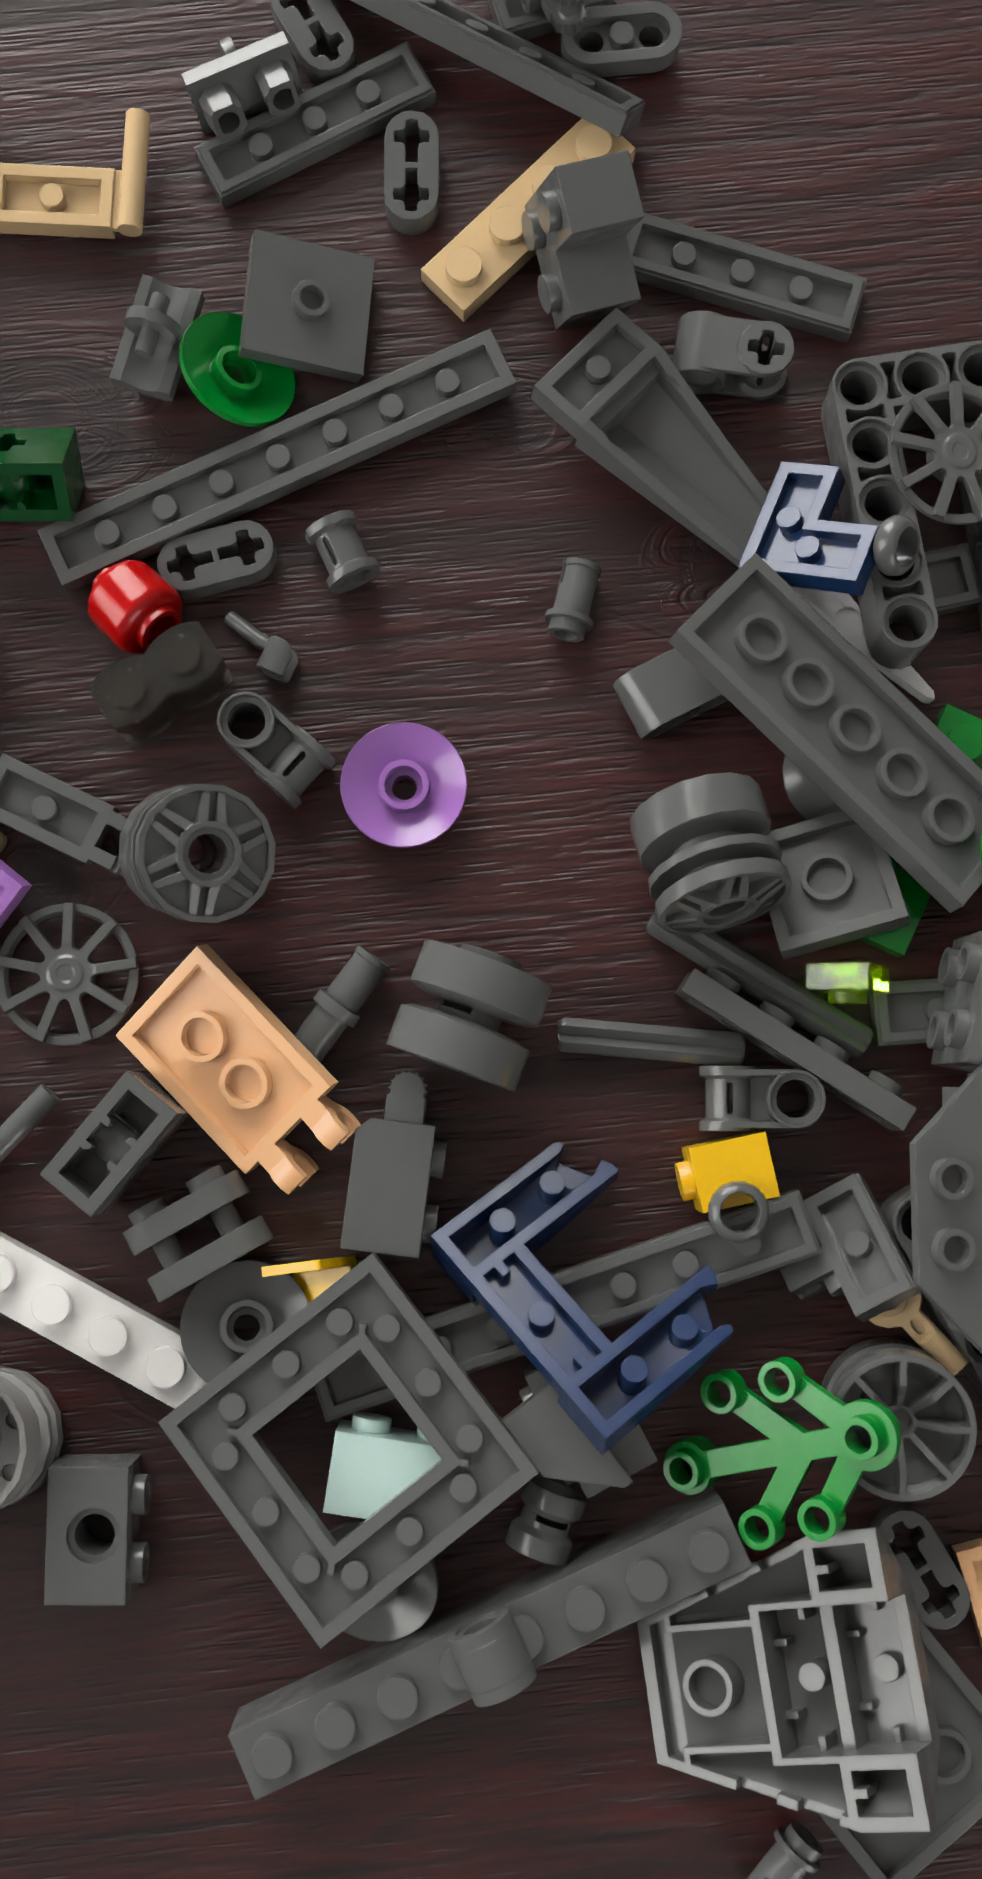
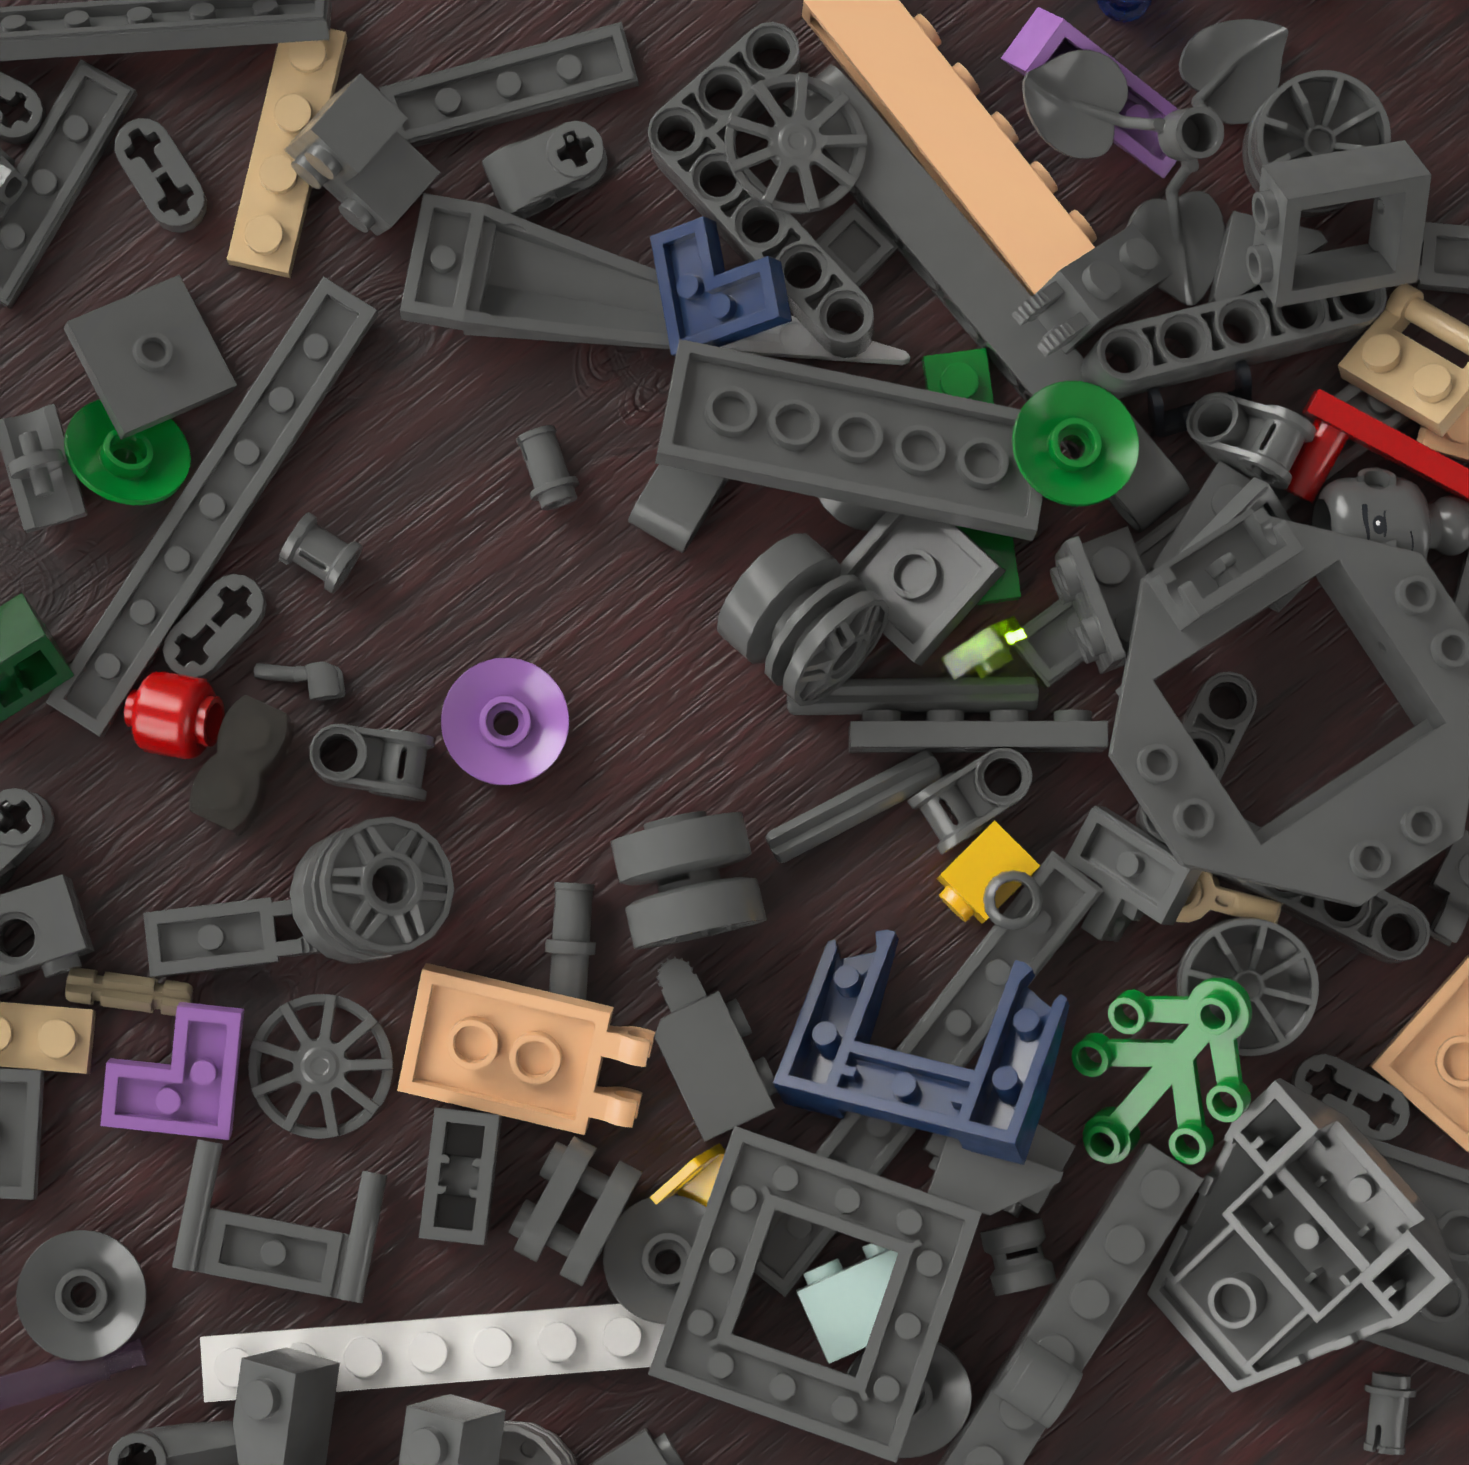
camera: 35 degrees left, 0 degrees up
(896, 545) = (782, 263): dark grey piece -> none

